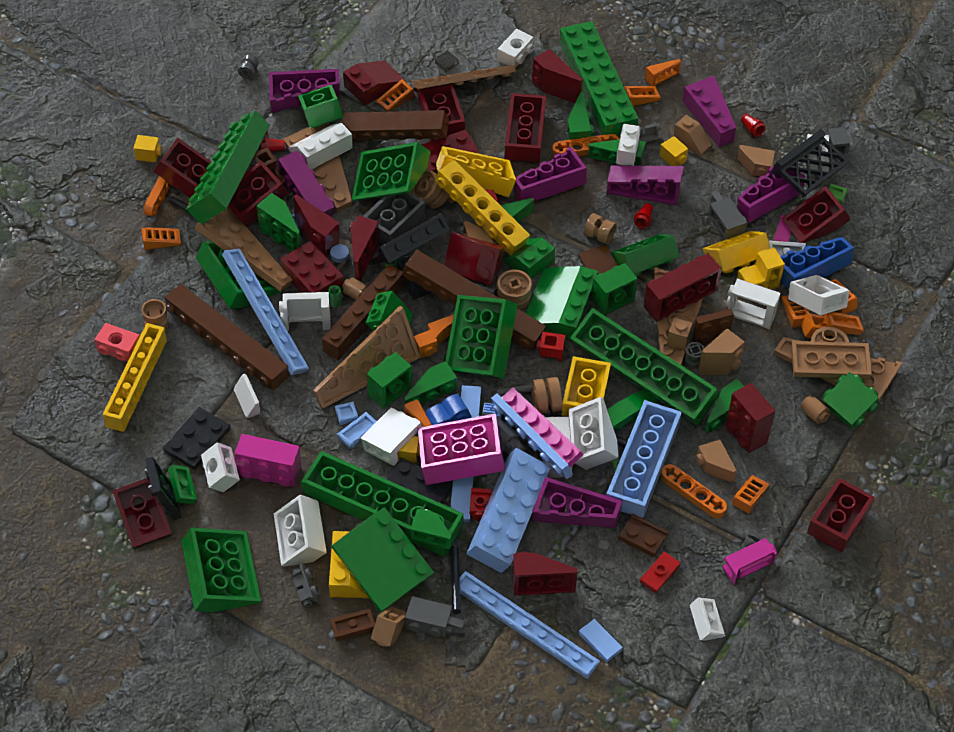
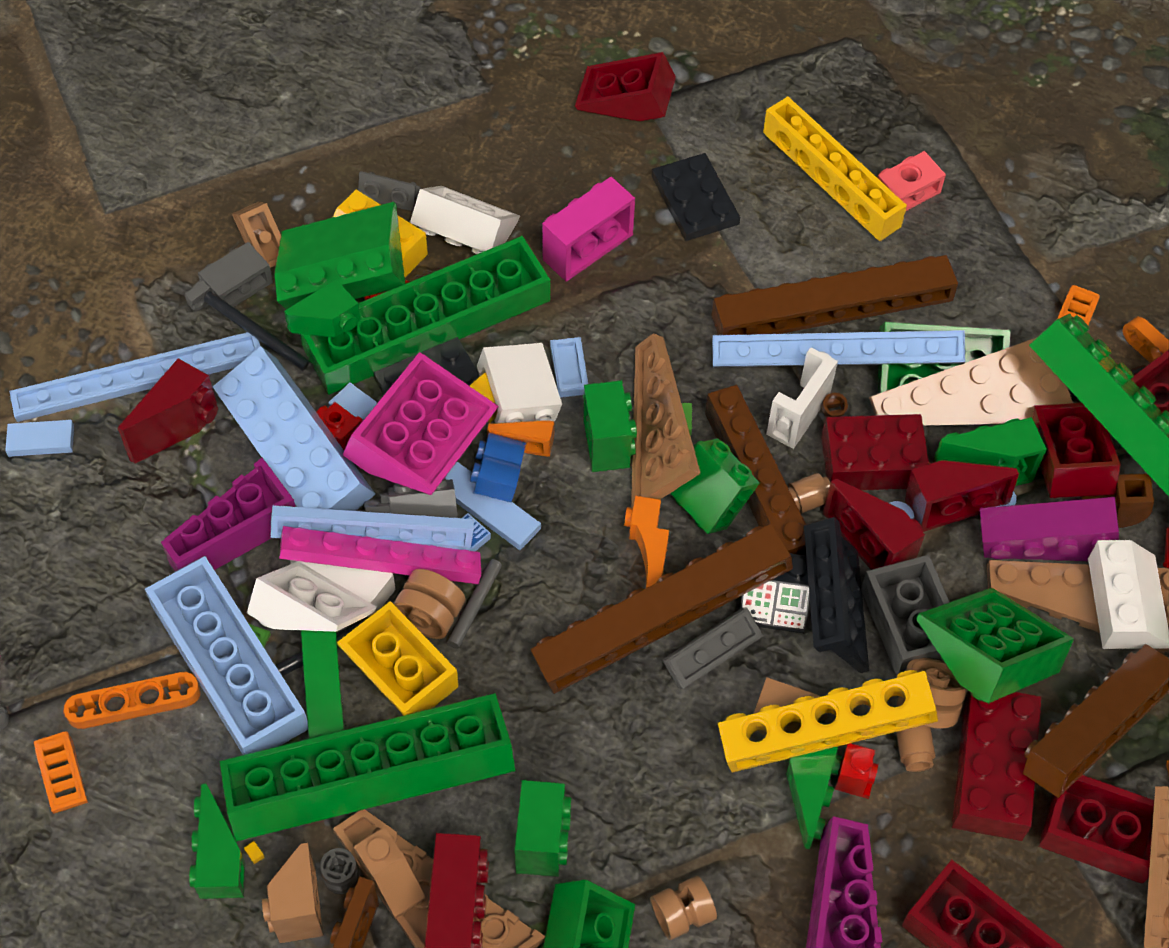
camera: 125 degrees right, 5 degrees up
(155, 313) = (922, 234): medium nougat wheel -> none
(161, 488) = (625, 97): black plate -> none
(182, 484) = (632, 142): green plate -> none
(220, 467) = (635, 181): white brick -> none
(220, 569) = (481, 119): green slope -> none
(247, 397) = (716, 277): white slope -> none
(334, 296) = (813, 457): green piece -> none
(346, 413) = (607, 368): light blue tile -> none
(352, 624) = (297, 202): reddish brown plate -> none
(434, 383) = (570, 488): green slope -> none
(474, 258) = (740, 671): dark red slope -> none
(481, 336) = (586, 575): green slope -> none
(486, 170) = (921, 781): yellow wedge -> none
(515, 287) = (652, 694): medium nougat wheel -> none
(532, 257) = (701, 766): green slope -> none
(551, 345) = (513, 667): red brick -> none
(562, 298) = (591, 748): green slope -> none
(598, 259) = (630, 870): reddish brown piece -> none
(643, 535) = (123, 589): reddish brown plate -> none
(660, 572) = (60, 570): red plate -> none
(716, 461) = (144, 759): medium nougat slope -> none
(749, 418) = (147, 831): dark red brick -> none

